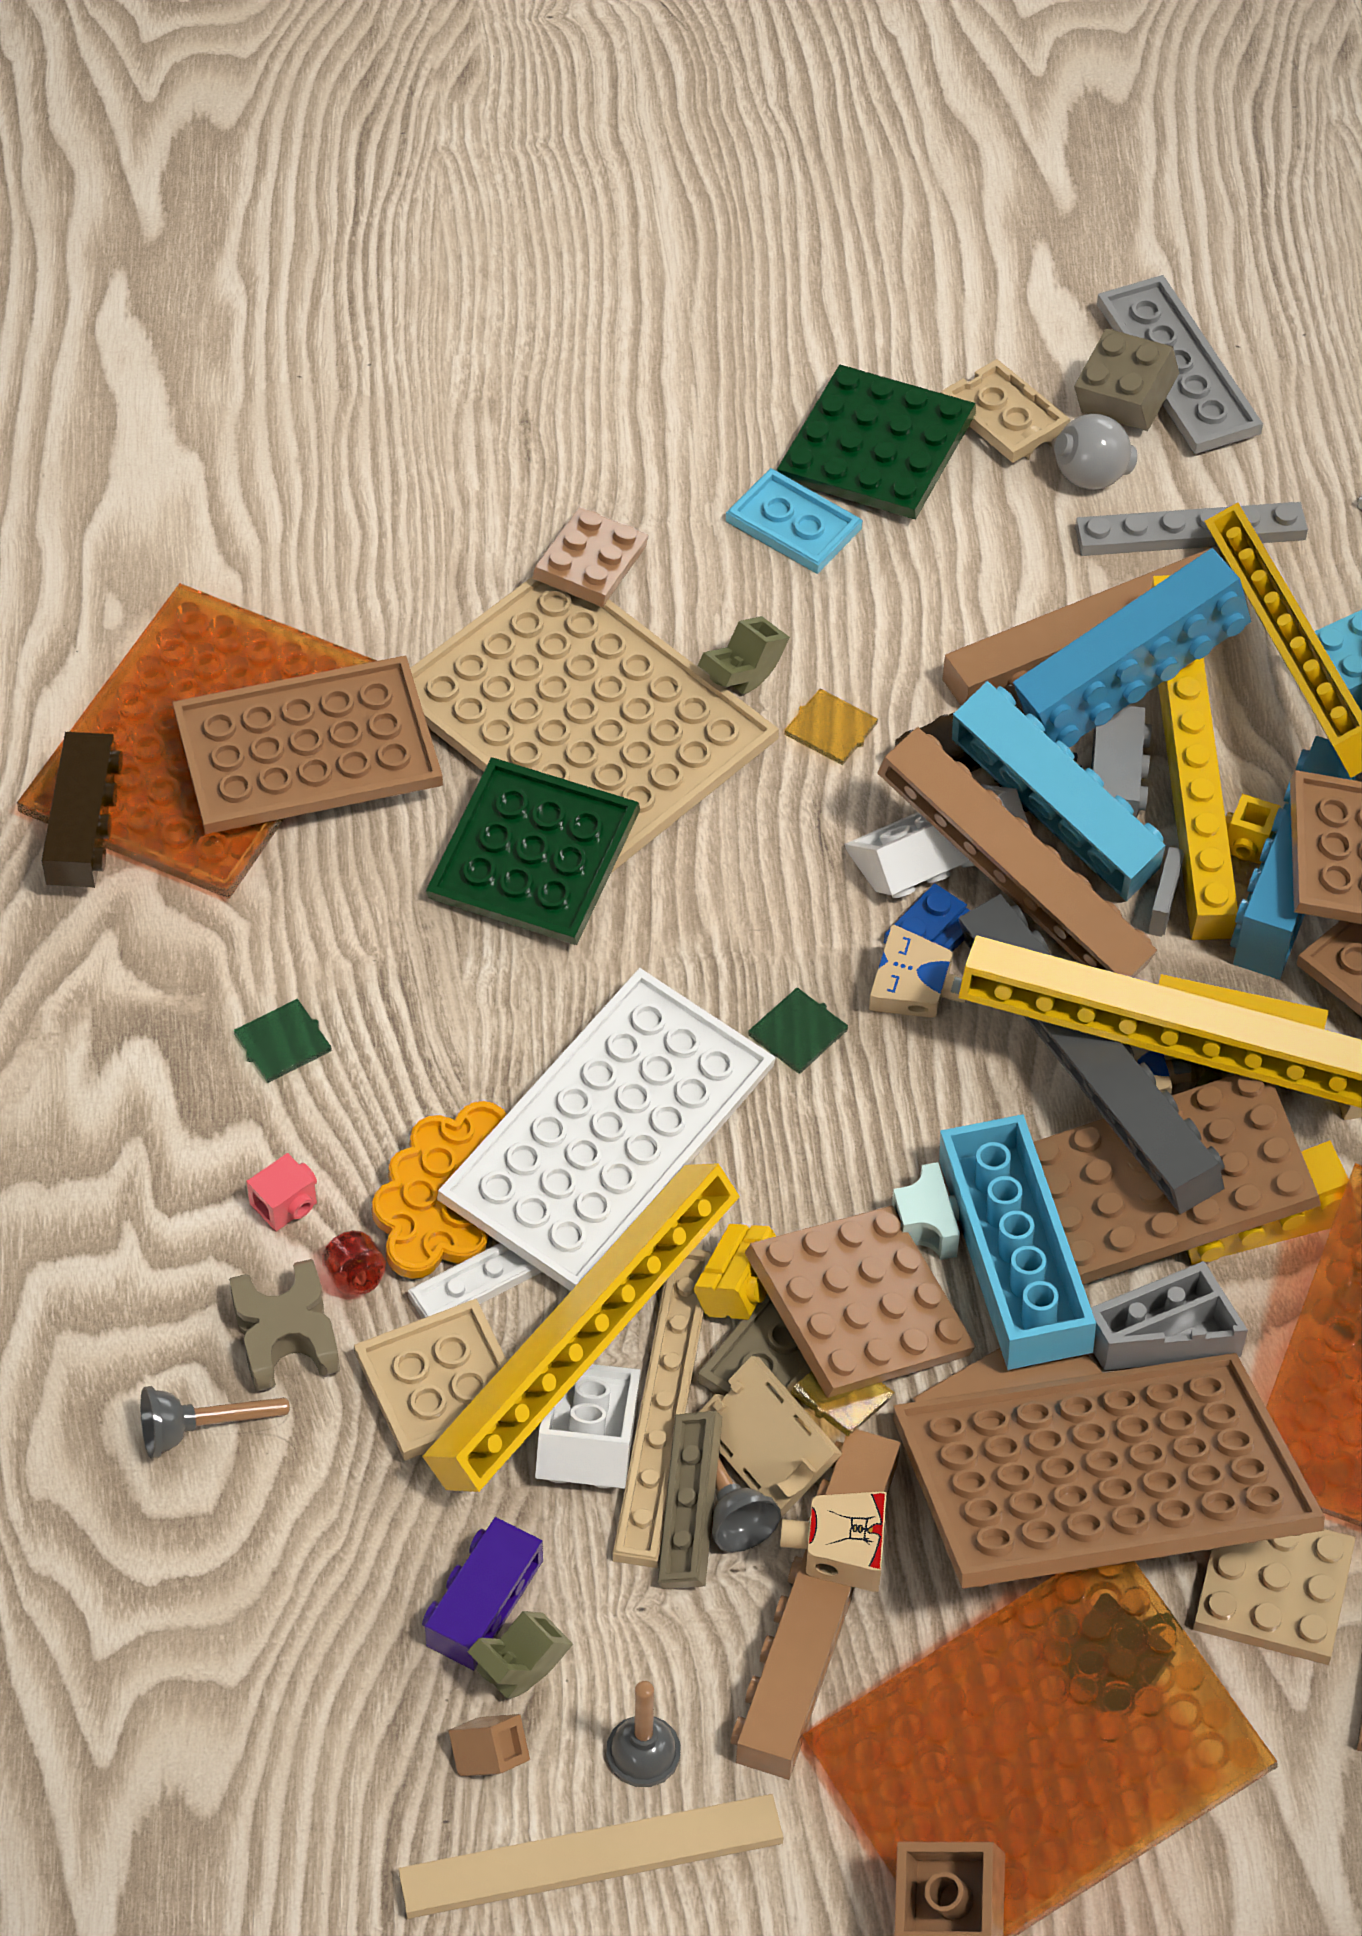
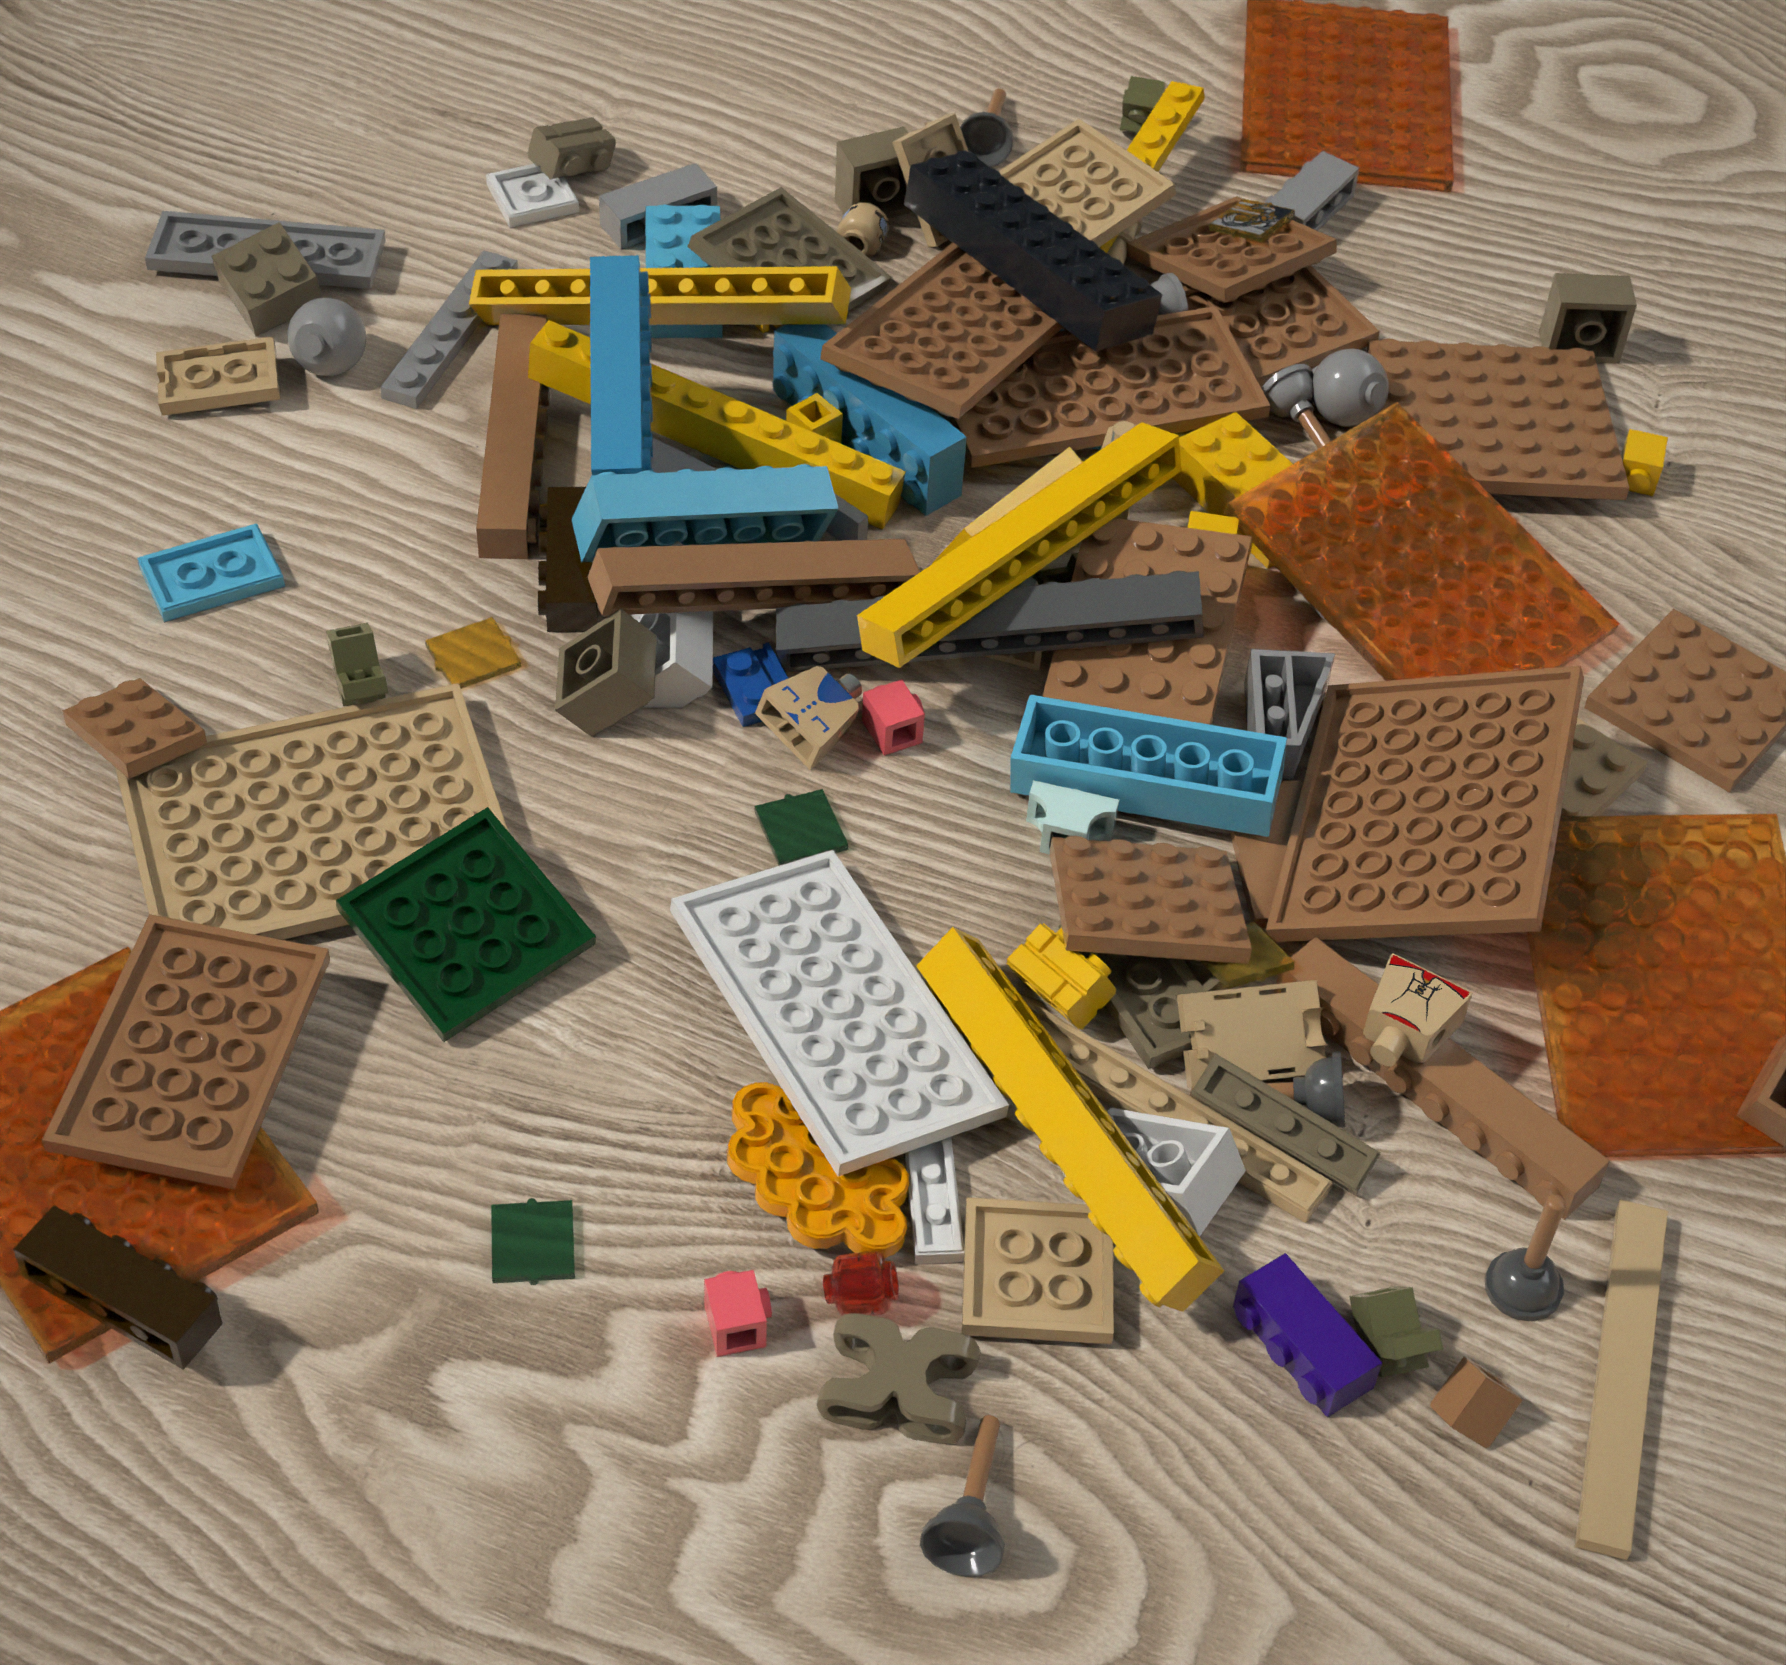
camera: 65 degrees left, 5 degrees down
(844, 815) = (606, 673): none -> dark tan brick
(877, 441) = (176, 470): dark green plate -> none
(956, 1037) = (893, 717): none -> coral brick

